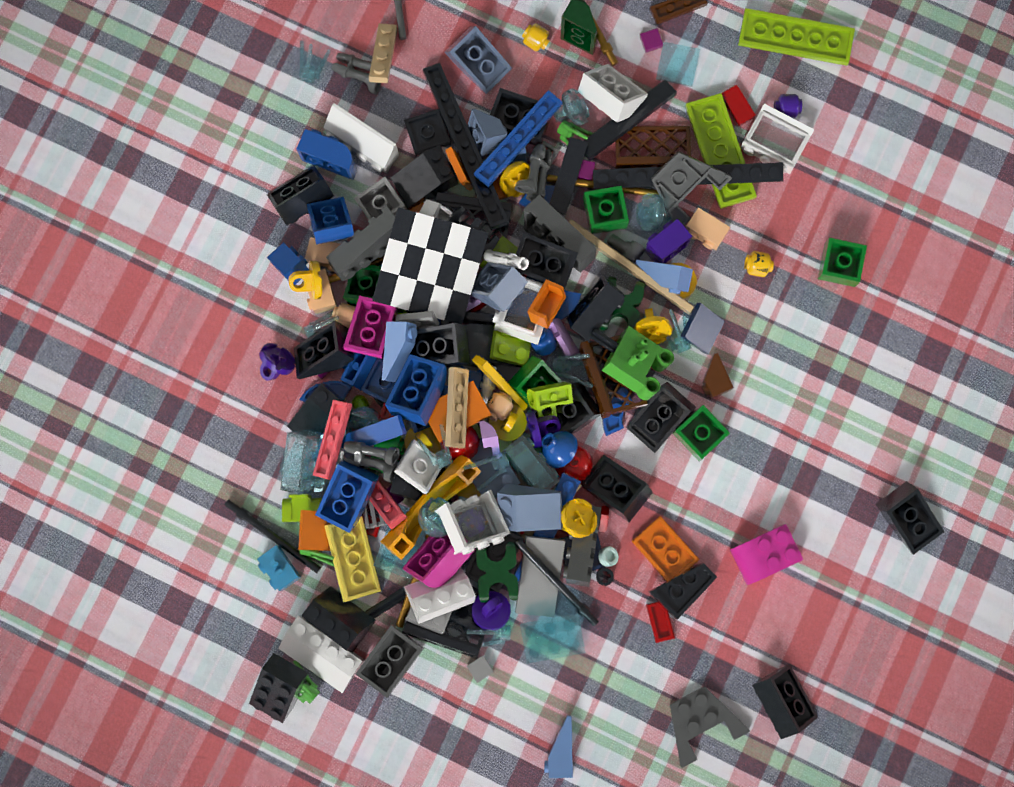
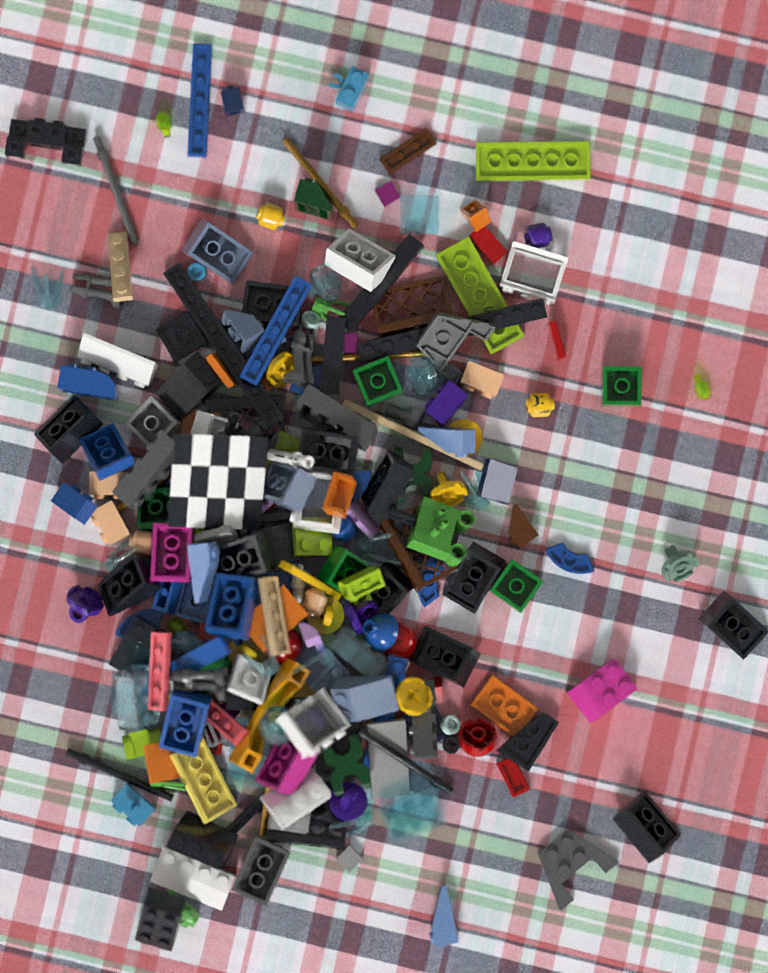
camera: 20 degrees left, 5 degrees up
(311, 280) = (101, 517): yellow tile -> none
(455, 75) = (196, 272): none -> dark azure tile
(553, 140) = (310, 320): none -> light aqua tile
(633, 574) = (477, 737): none -> red cylinder
(733, 75) = (476, 215): none -> orange slope
(757, 421) = (569, 561): none -> blue tile
(787, 207) = (557, 341): none -> red tile
(867, 445) = (679, 564): none -> sand green tile
(920, 281) = (701, 388): none -> clear neon green cylinder

